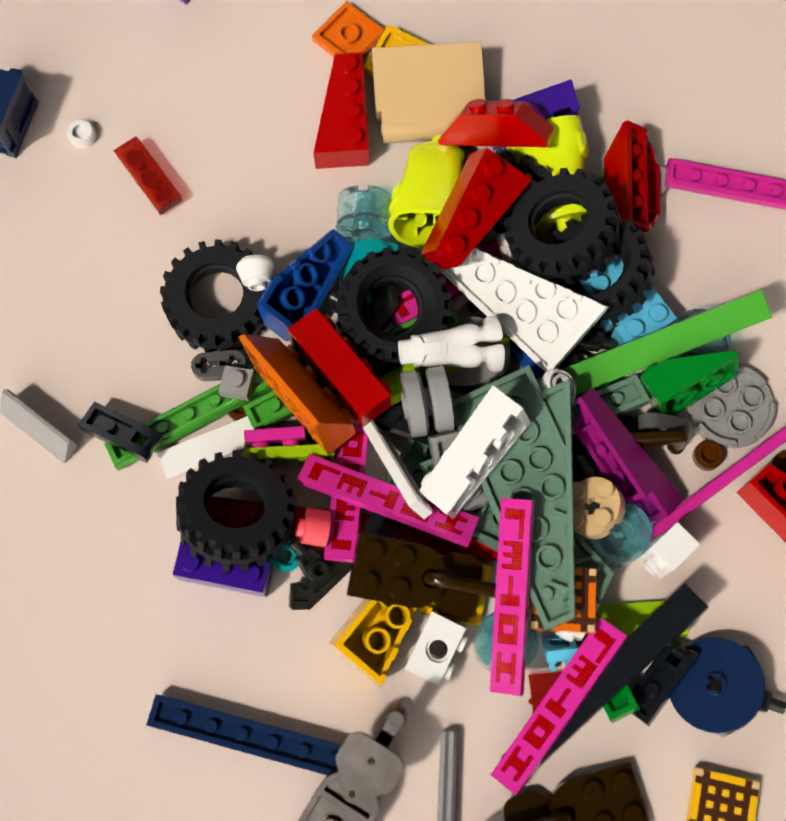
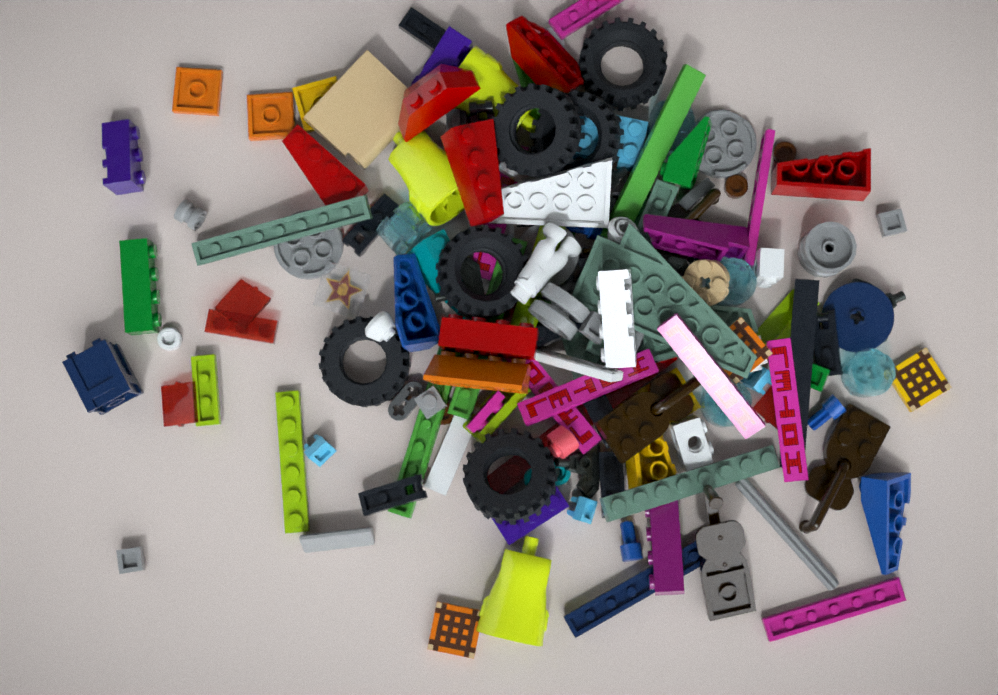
camera: 40 degrees left, 10 degrees up
(31, 190) = (179, 404): none -> clear red piece
(51, 609) = (454, 630): none -> tile
(64, 199) = (207, 391): none -> lime plate
(70, 326) = (292, 462): none -> lime plate
(100, 69) = (139, 286): none -> green brick
(101, 336) = (319, 451): none -> medium azure tile
(128, 635) = (518, 597): none -> neon yellow torso
(168, 157) = (243, 303): none -> clear red piece
(202, 54) = (191, 215): none -> light grey wheel
(262, 125) = (282, 230): none -> sand green plate
(262, 221) = (342, 290): none -> clear tile
(273, 162) = (308, 255): none -> light grey tile
(275, 613) = (584, 509): none -> medium azure tile
(281, 693) = (630, 549): none -> blue piece
(315, 721) = (666, 549): none -> magenta brick
(323, 616) = (610, 475): none -> black plate
(332, 188) = (380, 210): none -> black plate
(395, 682) = (688, 483): none -> sand green plate
(546, 68) = (422, 29): none -> black plate
(606, 748) = (830, 408): none -> blue piece
(693, 746) = (872, 360): none -> clear light blue brick
(720, 225) = (630, 36): none -> black tyre
(762, 587) = (839, 254): none -> light grey wheel

